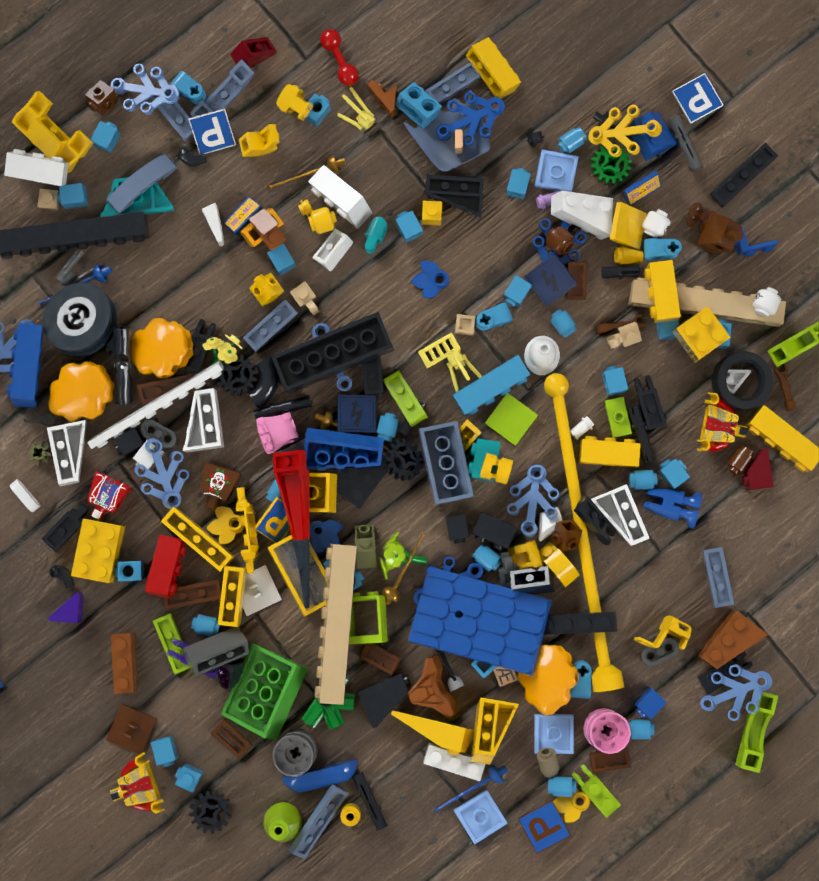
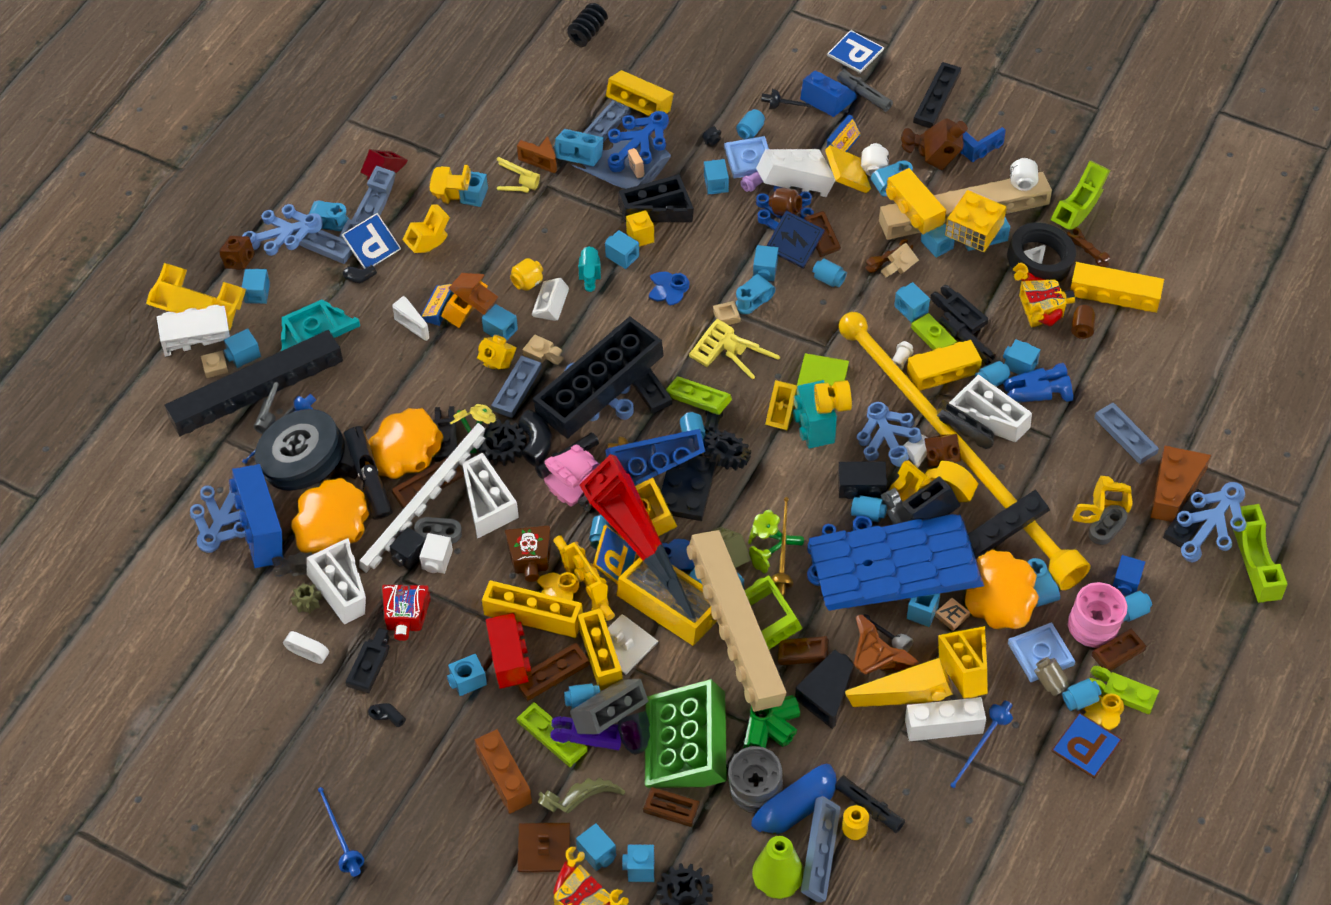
camera: 25 degrees left, 30 degrees down
(70, 611) = (410, 746): dark purple slope -> none
(98, 551) = (419, 668): yellow brick -> none
(140, 181) = (310, 308): sand blue slope -> none
(164, 476) = (461, 562): medium blue plant -> none
(169, 703) = (577, 794): none -> olive plant
(305, 207) = (503, 272): yellow plate -> none
(332, 164) = (514, 226): pearl gold sword -> none
(340, 196) = (540, 243): white wedge -> none
(347, 73) = (461, 128): red piece -> none
(356, 414) = (649, 425): dark blue tile -> none
(445, 463) = (773, 434): sand blue slope -> none
(457, 528) = (820, 492): black brick -> none
(480, 816) = (1007, 770): light blue tile -> none
(490, 385) = (783, 351): dark azure brick -> none
(541, 355) = (822, 309): white hat -> none
(614, 171) = (801, 130): green gear -> none
(620, 271) = (861, 212): black axle -> none
(621, 131) = (779, 106): yellow plant -> none
(627, 255) = (861, 195): yellow cone -> none
(759, 472) = (1110, 326): dark red slope -> none

